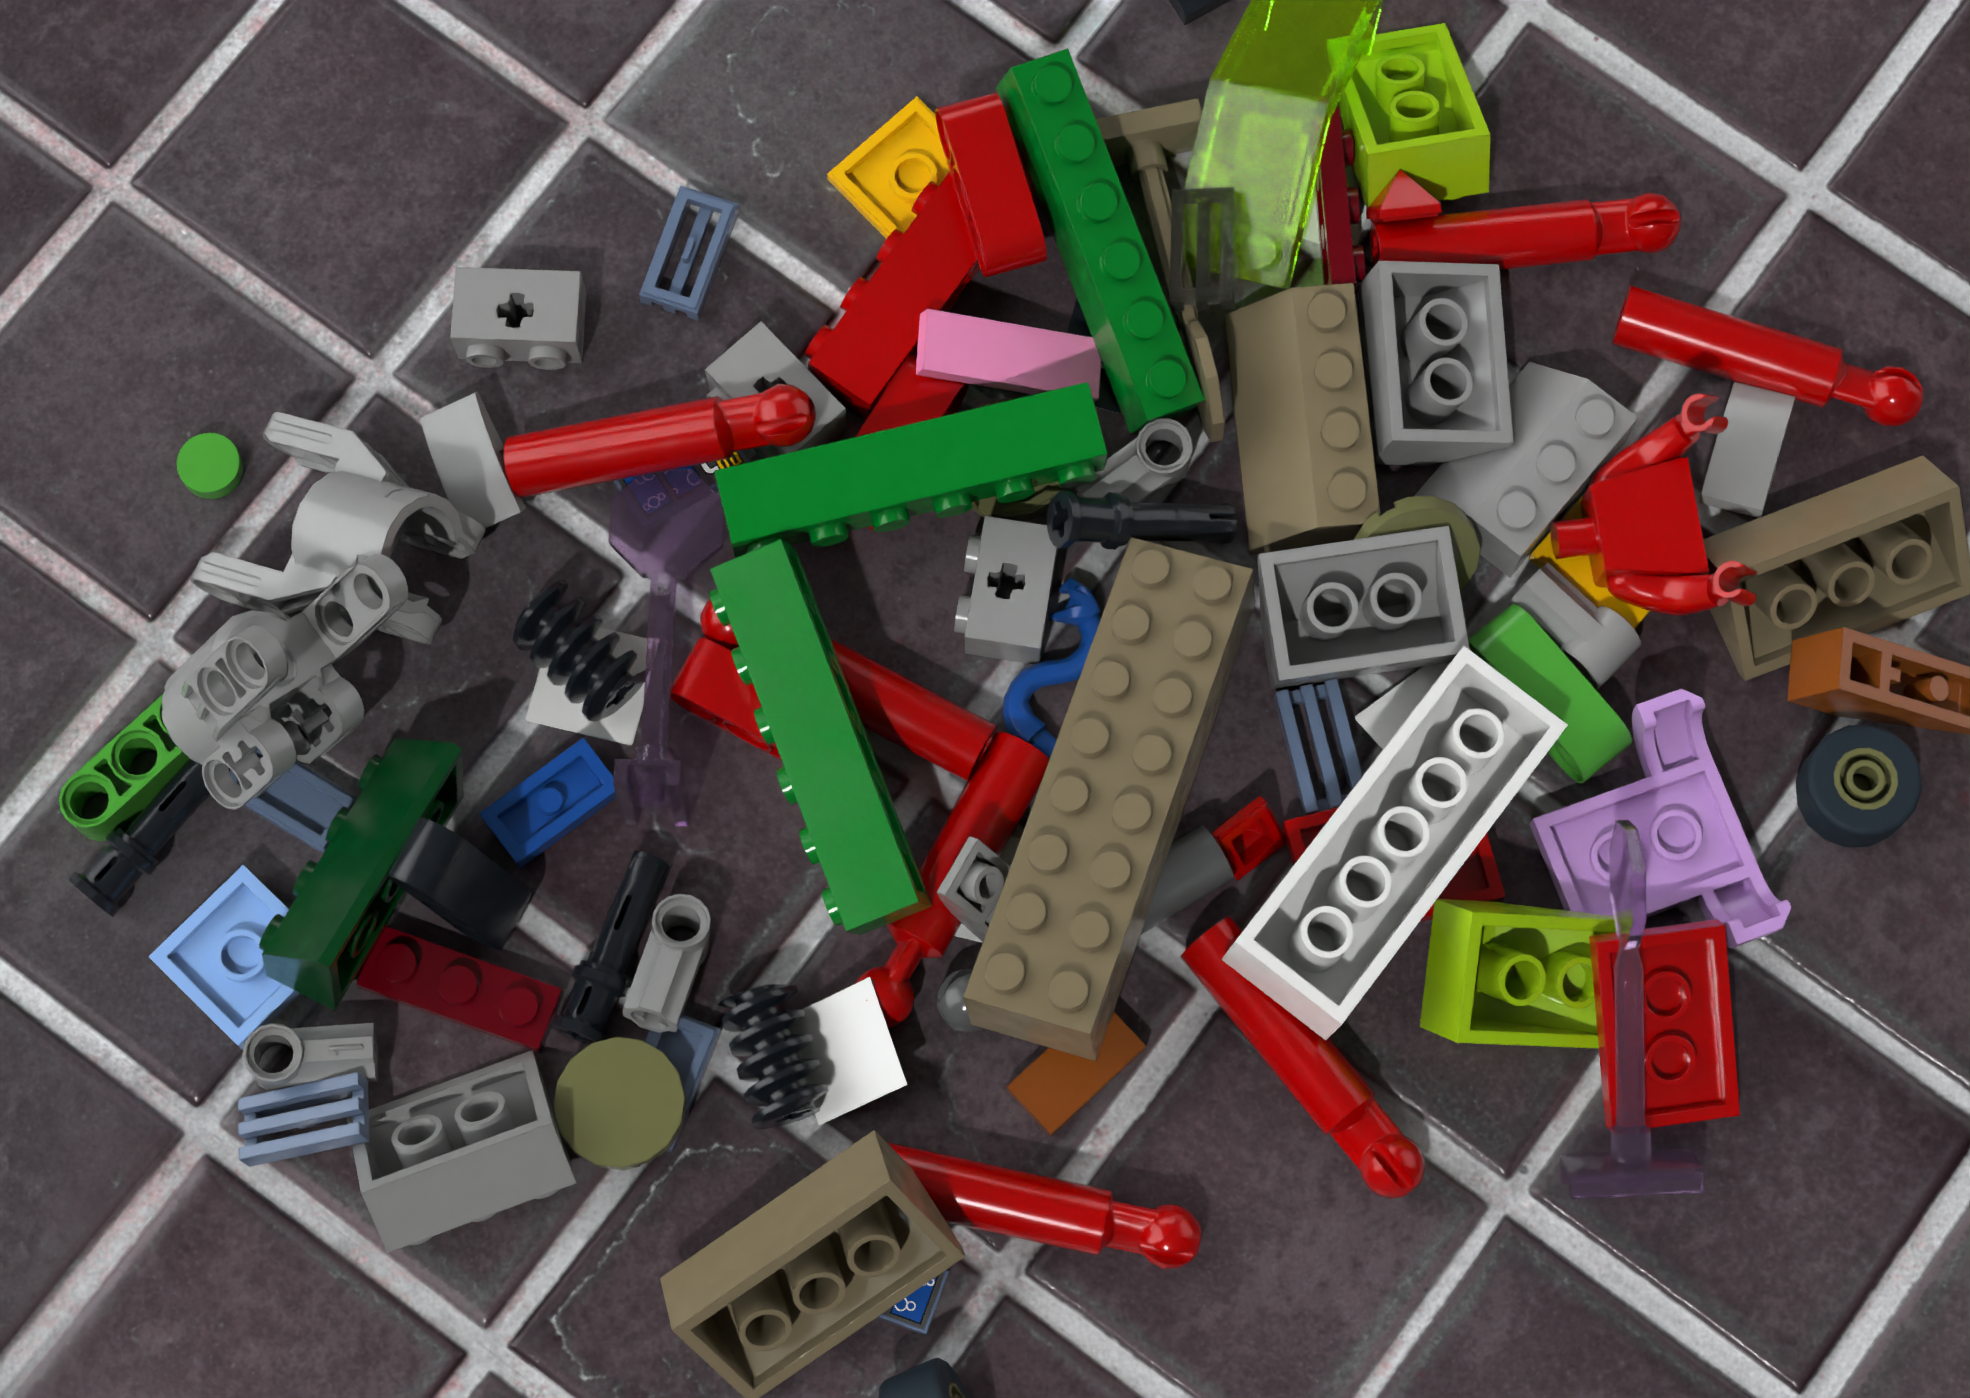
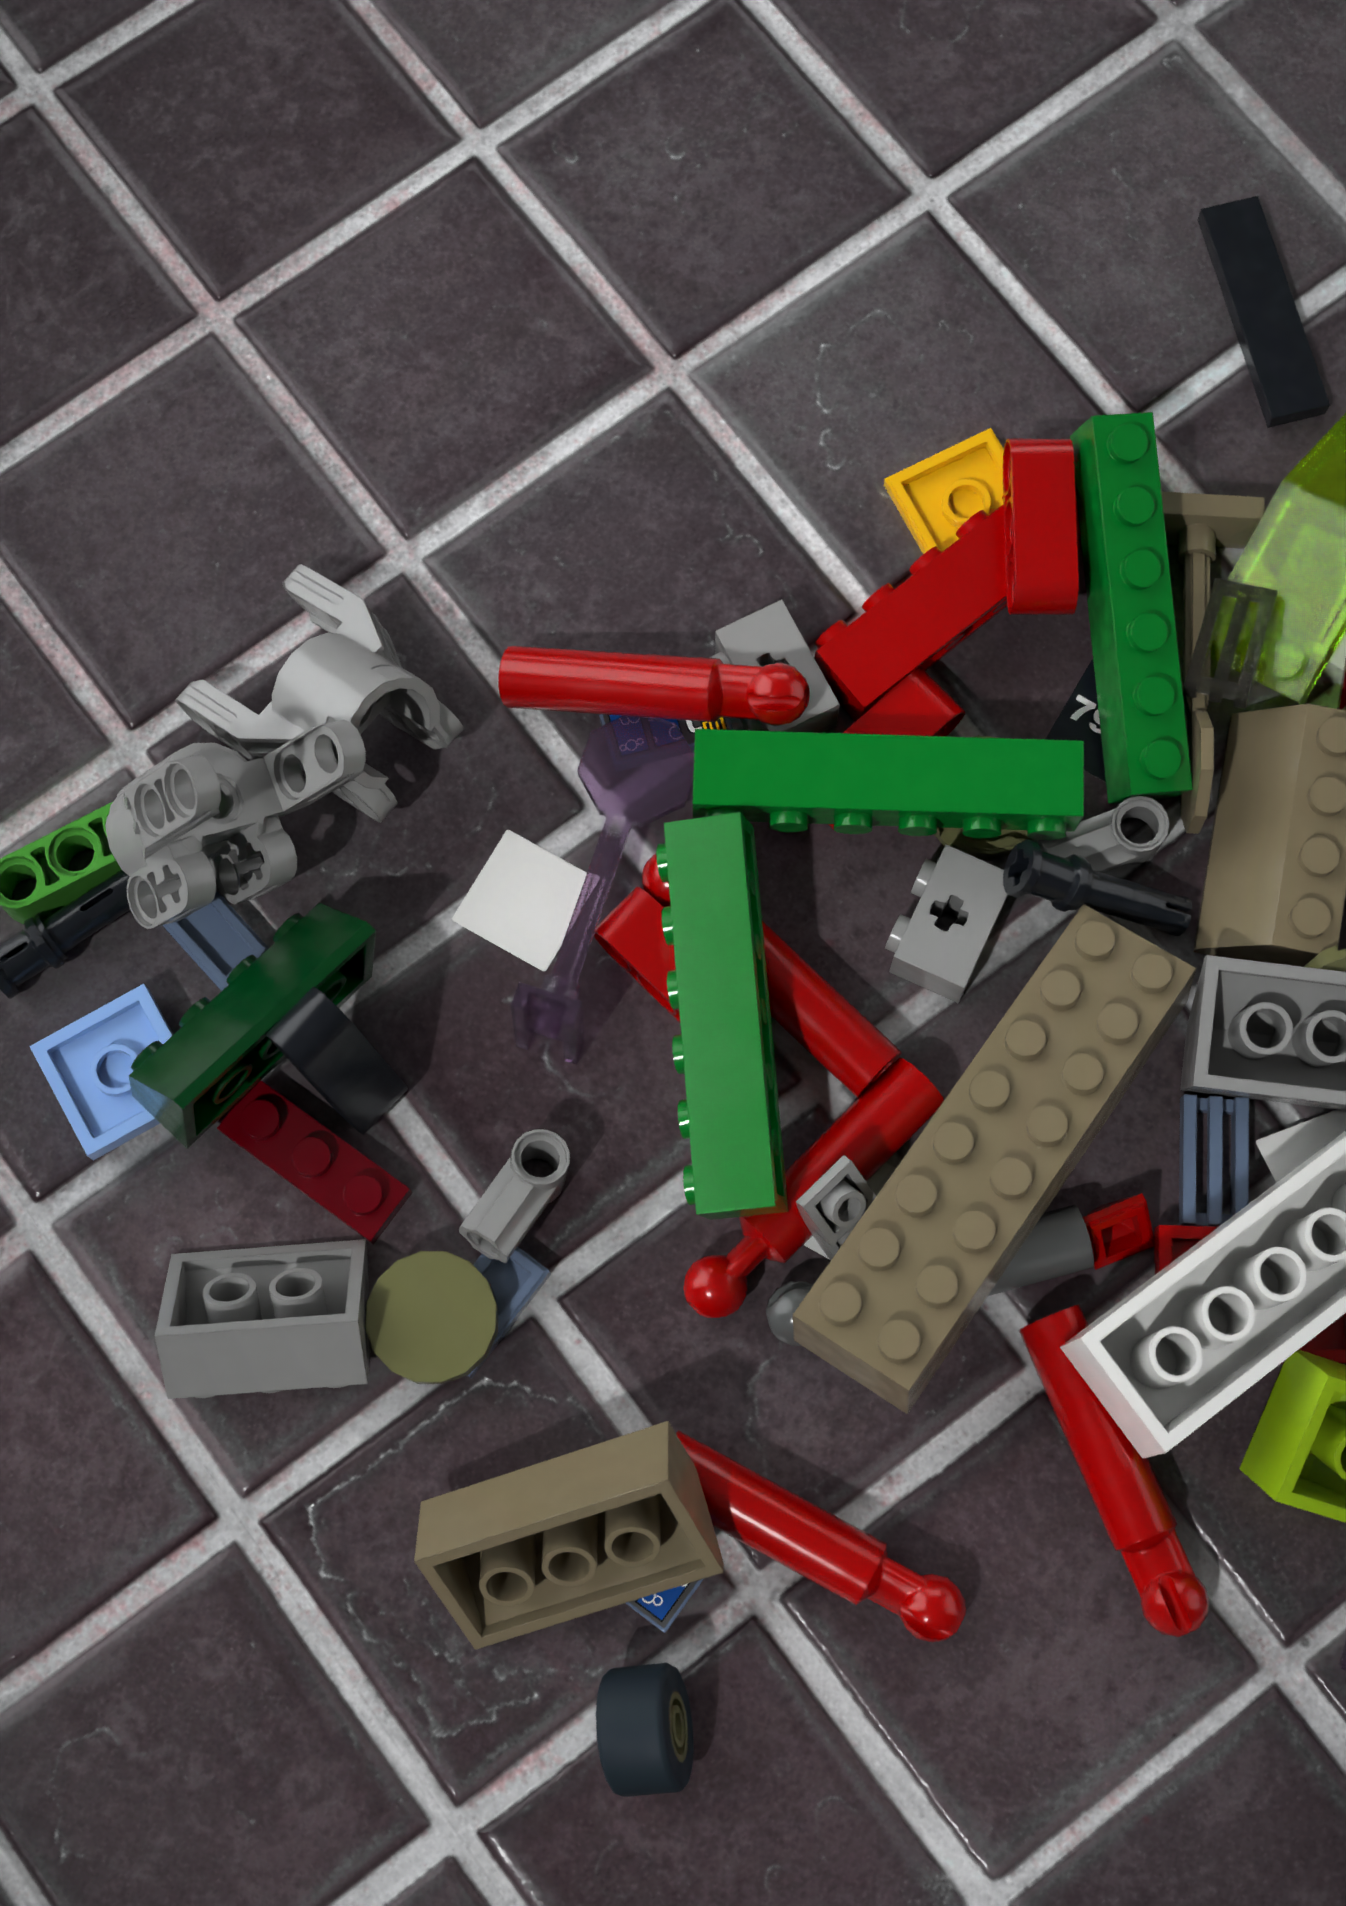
camera: 20 degrees right, 0 degrees up
(210, 465) = (227, 599): bright green tile -> none
(295, 1097) = (83, 1238): sand blue tile -> none
(317, 1054) = (160, 1186): light grey piece -> none
(469, 461) = (467, 659): light grey slope -> none
(492, 298) = (535, 512): light grey brick -> none
(550, 803) = (450, 1006): blue plate -> none
(575, 654) = (514, 869): black piece -> none
(602, 976) = (450, 1189): black pin -> none
(674, 299) = (706, 558): sand blue tile -> none
(772, 1055) = (593, 1312): black piece -> none
(852, 1050) = (664, 1329): white sticker -> none
(1004, 354) = (1007, 693): bright pink tile -> none
(1017, 713) = (924, 1043): blue animal -> none
(1063, 1083) = (865, 1424): dark orange tile -> none

